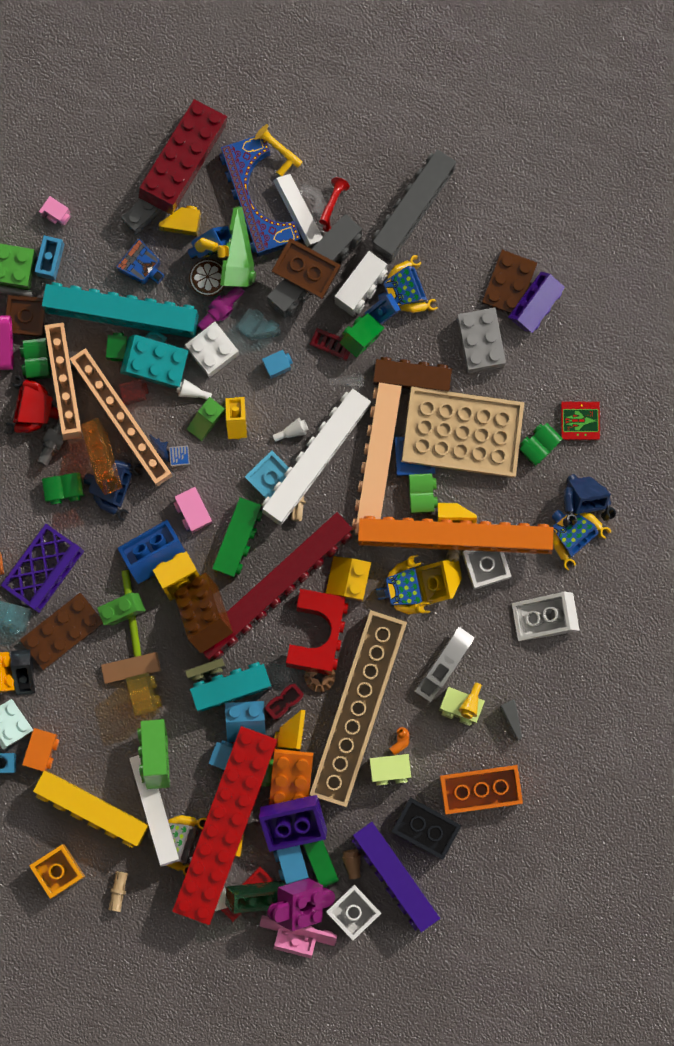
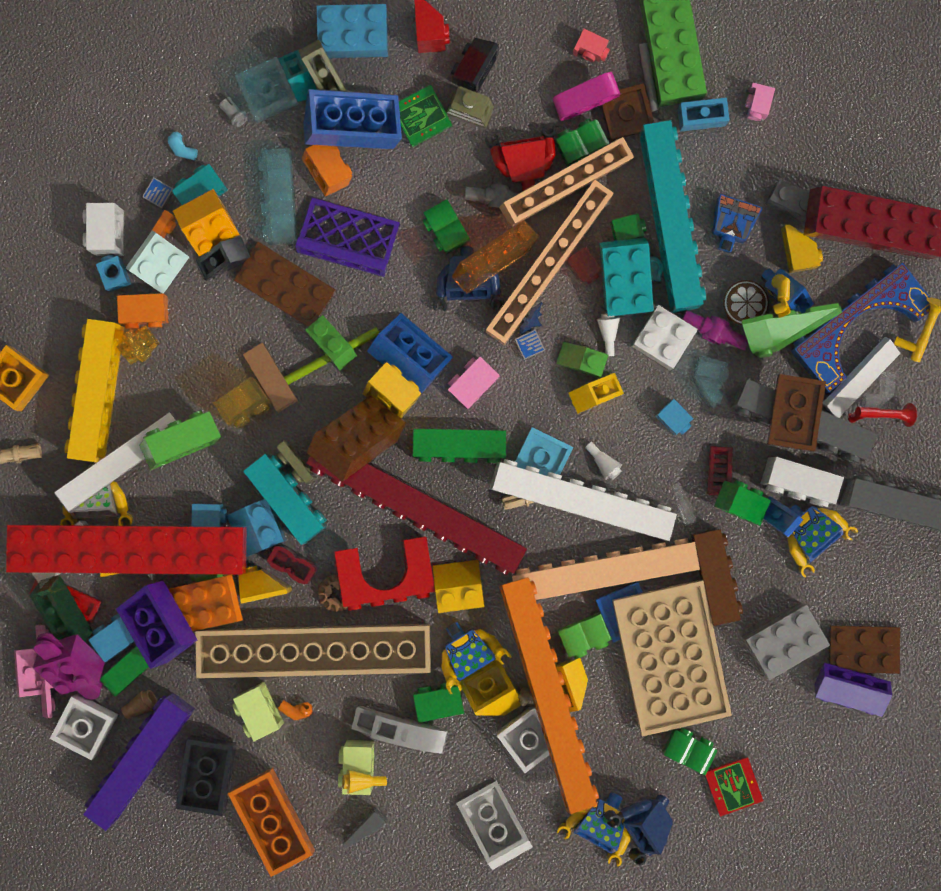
camera: 70 degrees right, 5 degrees up
(67, 762) = (137, 344): none -> clear yellow brick
(433, 626) = (437, 702): none -> green brick

